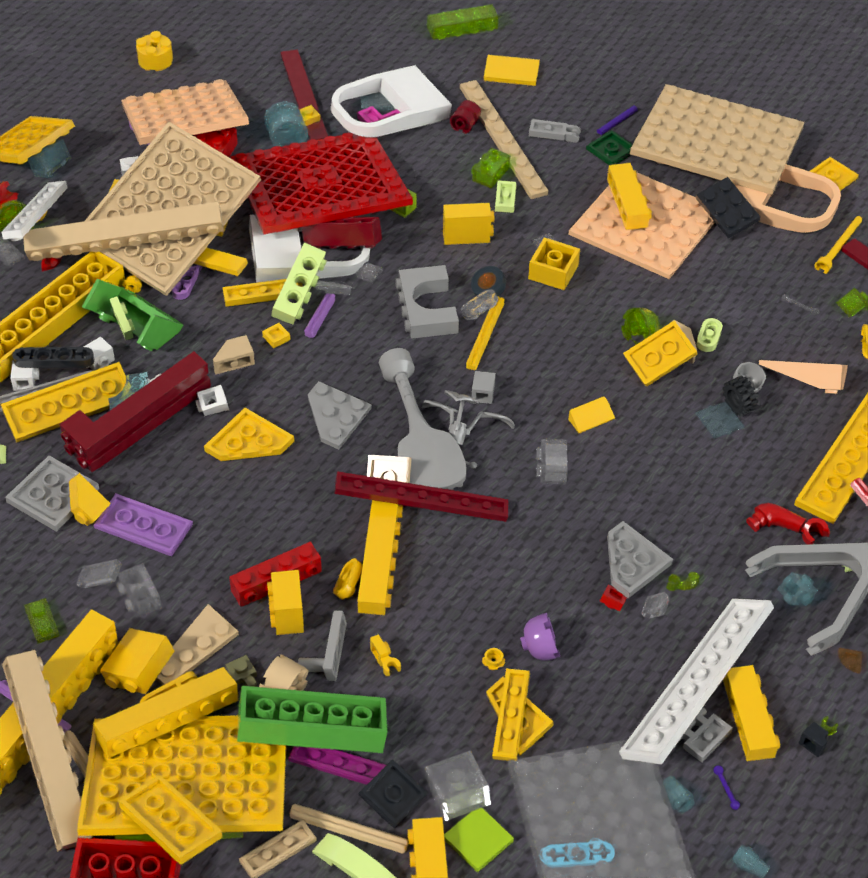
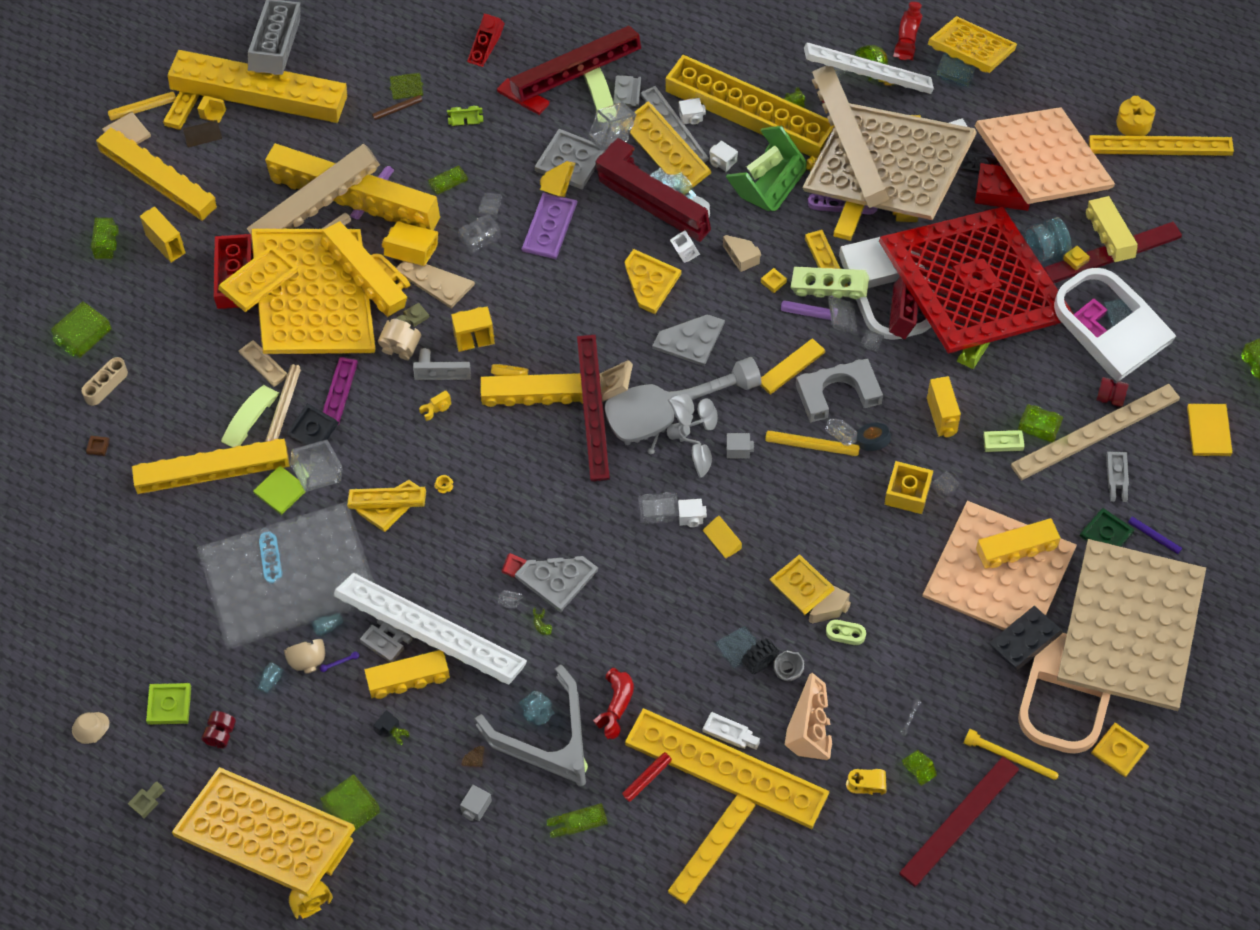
camera: 85 degrees right, 10 degrees up
(30, 437) = (611, 124): none -> clear brick
(36, 284) = (796, 97): none -> clear neon green brick
(53, 360) = (703, 123): black beam -> none
(190, 45) = (1161, 145): none -> yellow plate
(252, 583) = (506, 320): red brick -> none
(284, 84) = (1111, 229): none -> light yellow brick
(312, 719) = (361, 359): bright green brick -> none
(384, 332) = (791, 366): none -> yellow tile
(540, 638) = (462, 511): medium lavender cylinder -> none
(563, 430) = (691, 512): none -> white brick
(639, 322) = (840, 570): clear neon green cylinder -> none
(727, 810) = (306, 655): none -> tan cylinder
(819, 436) = (730, 732): none -> white hinge

